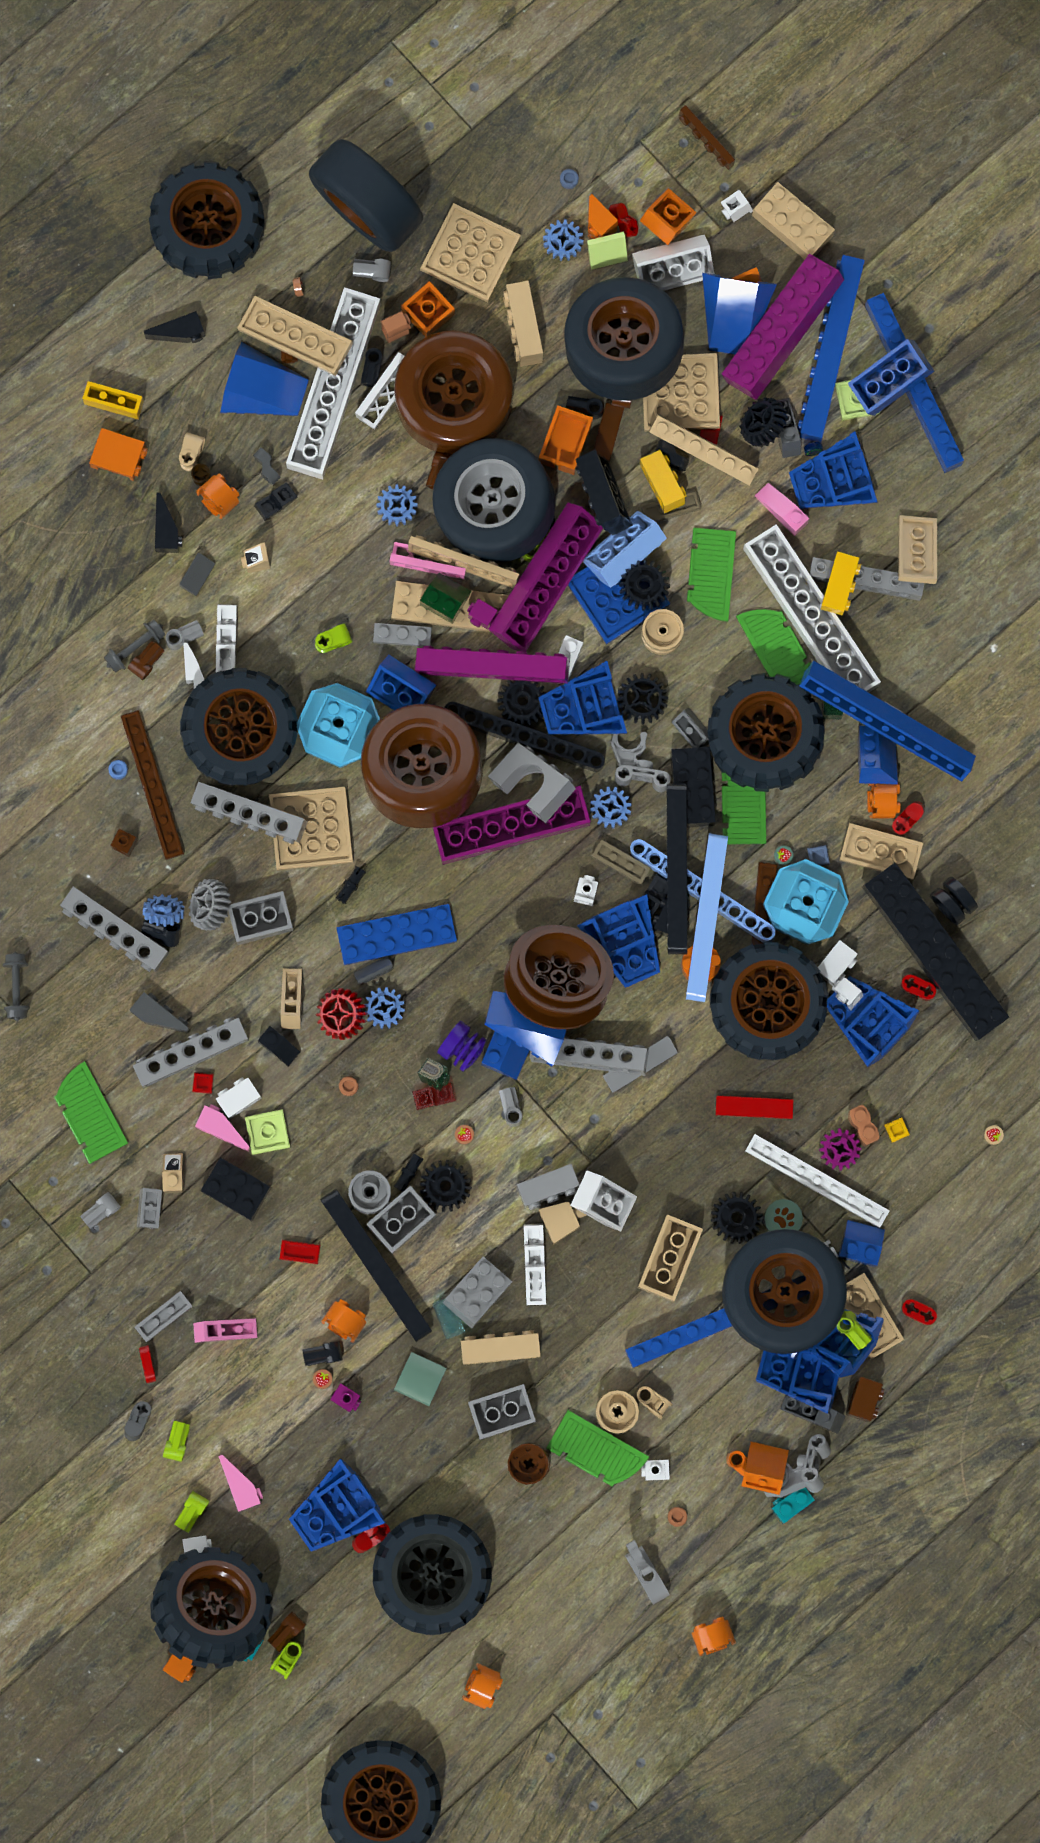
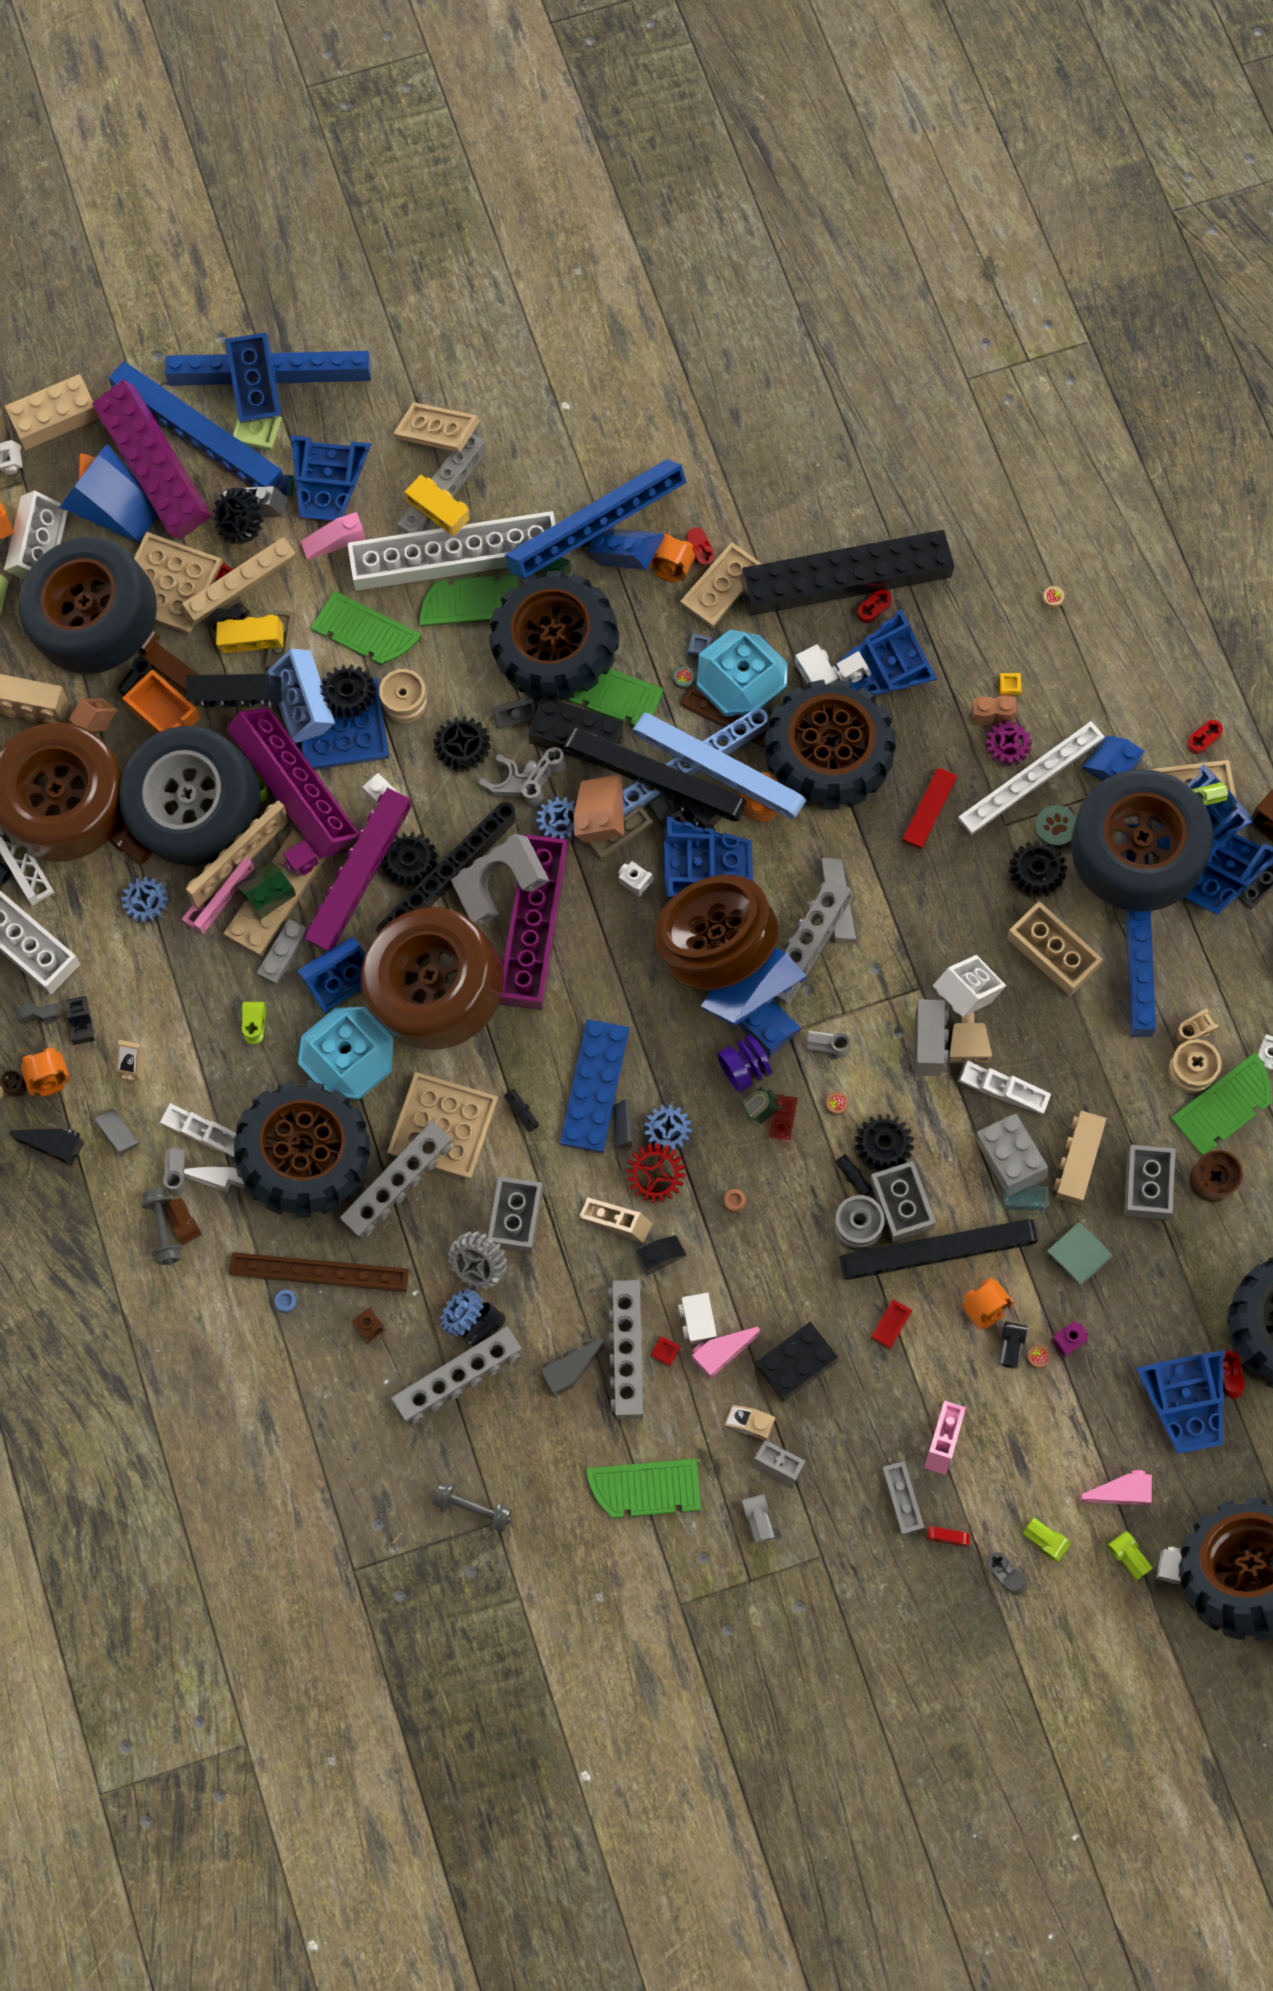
camera: 60 degrees left, 10 degrees down
(267, 1132) = (747, 1305): yellowish green tile -> none
(533, 388) = (93, 714): none -> nougat brick
(583, 705) = (443, 800): blue wedge -> none
(629, 836) = (599, 809): none -> nougat slope
(953, 900) = (803, 533): black wheel -> none

